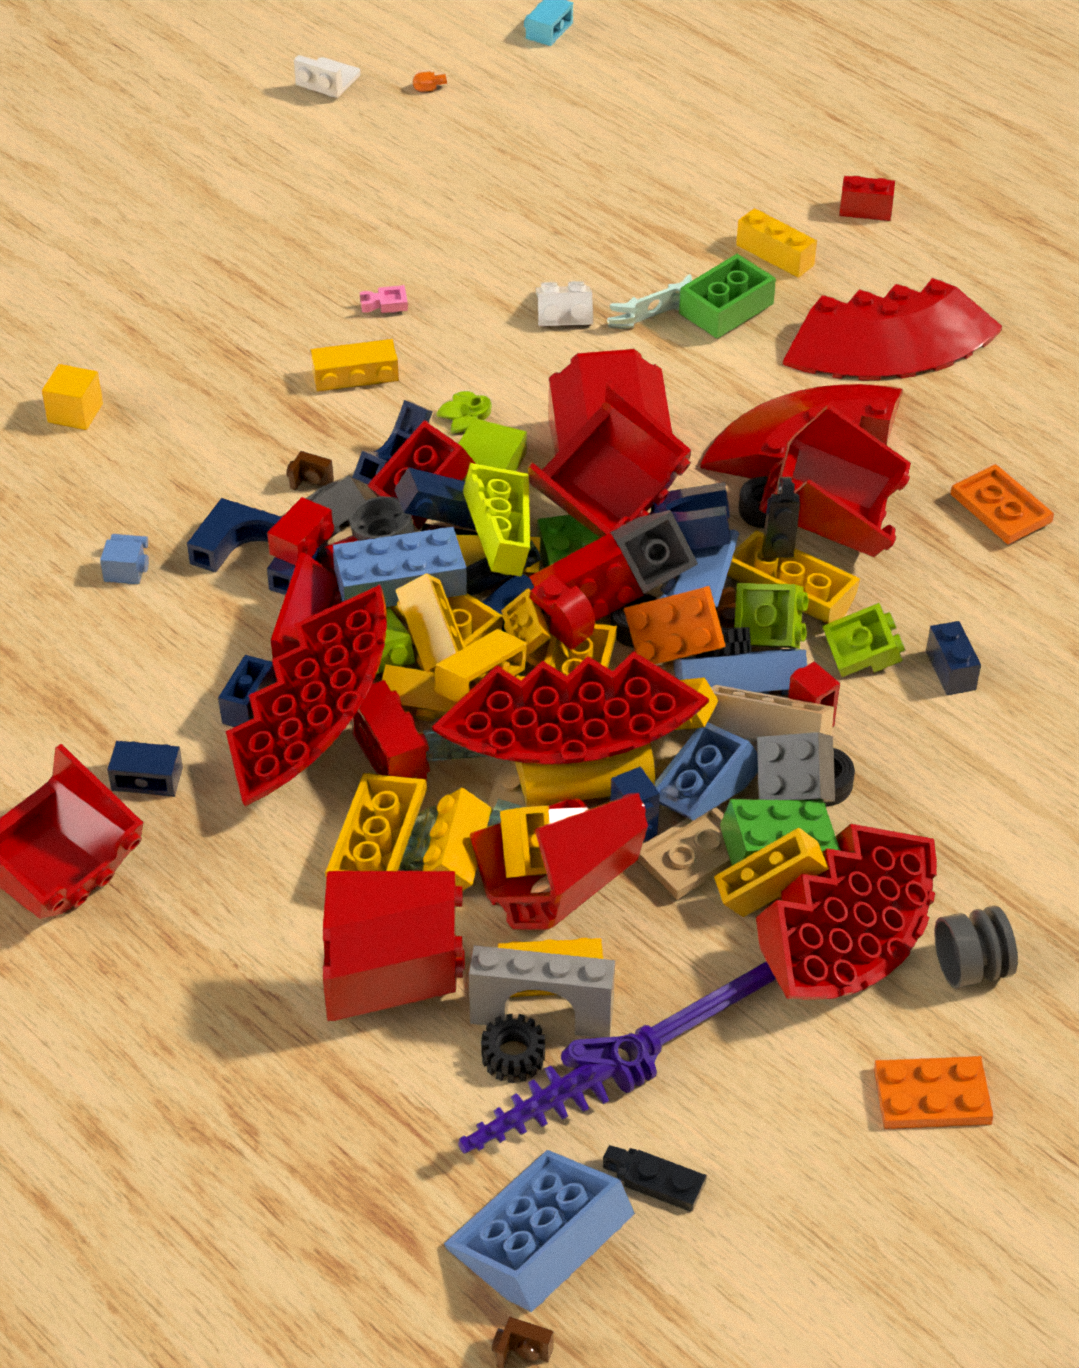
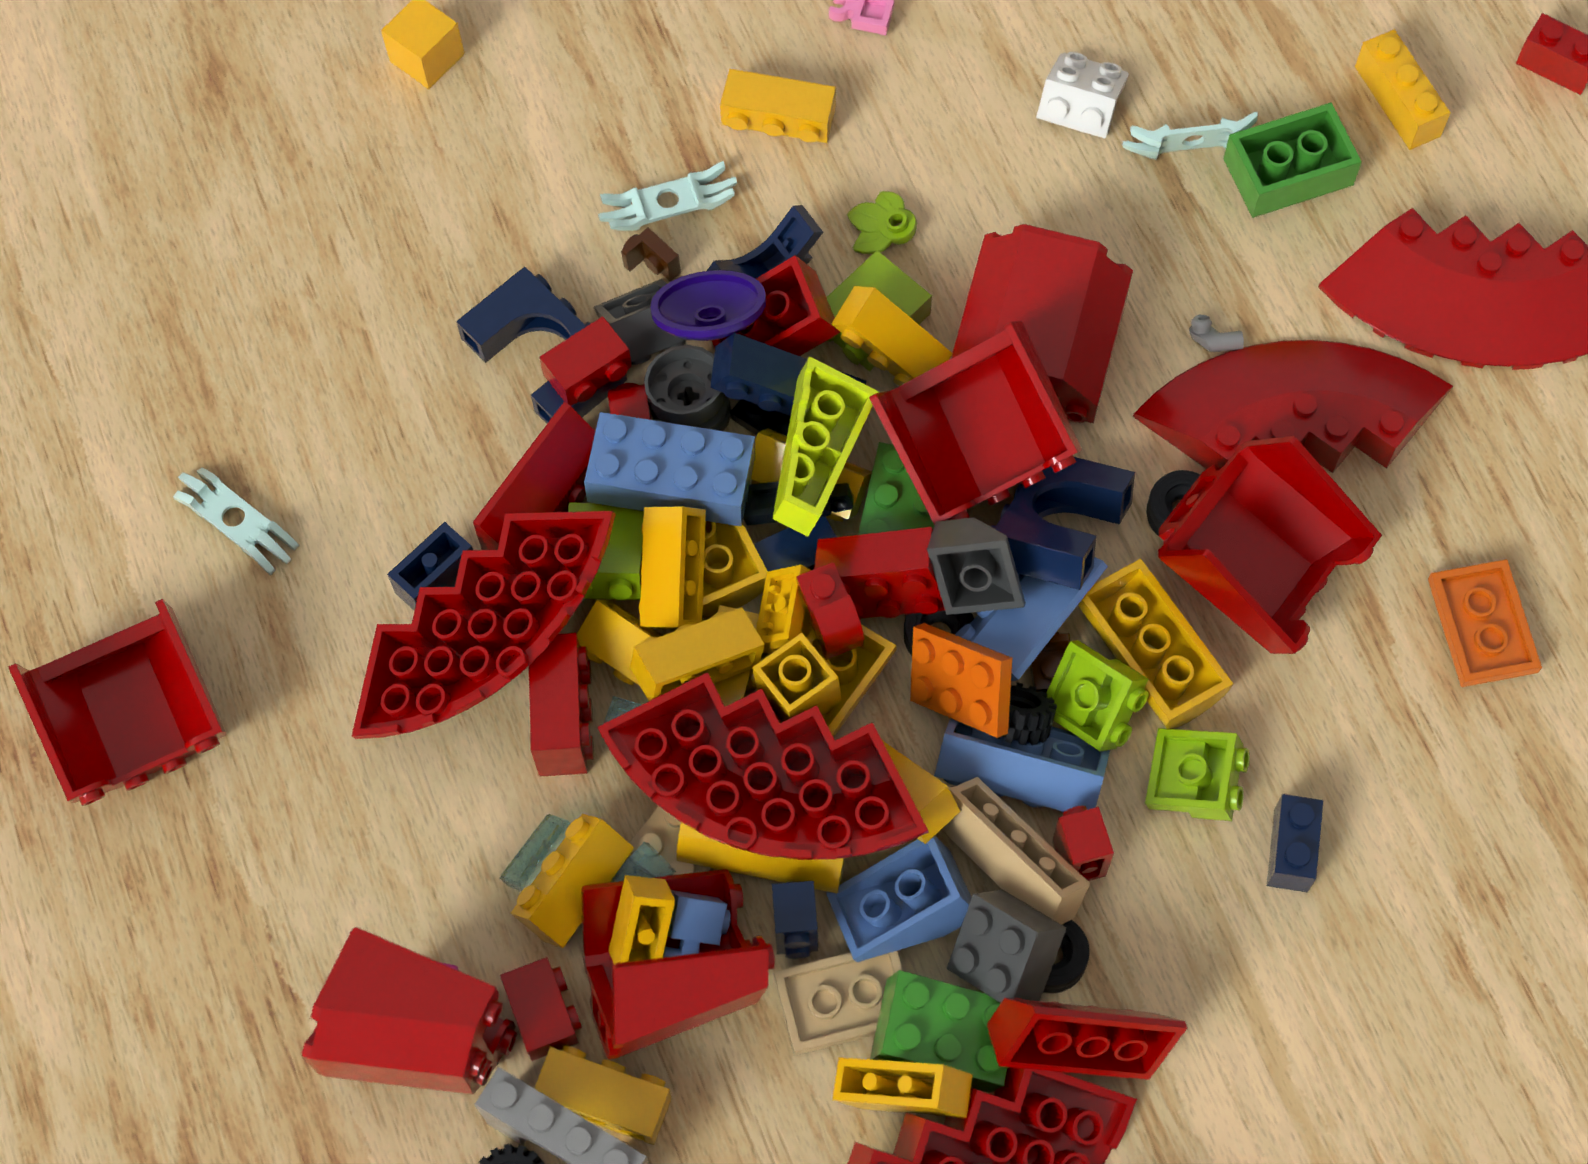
camera: 25 degrees right, 20 degrees up
(90, 721) = (245, 535): none -> light aqua piece
(124, 559) = (385, 312): medium blue brick -> none
(145, 768) = (280, 628): dark blue brick -> none
(317, 429) = (692, 195): none -> light aqua piece
(378, 467) = (708, 305): none -> dark purple dish
(378, 824) = (486, 832): yellow brick -> none
(479, 925) = (540, 1008): none -> red brick
(505, 448) = (888, 335): none -> yellow brick
(561, 648) = (797, 679): none -> yellow head
(733, 409) = (1213, 341): none -> light grey arm
(781, 521) = (1160, 579): black hinge -> none
(881, 792) = (1082, 1038): none -> red slope

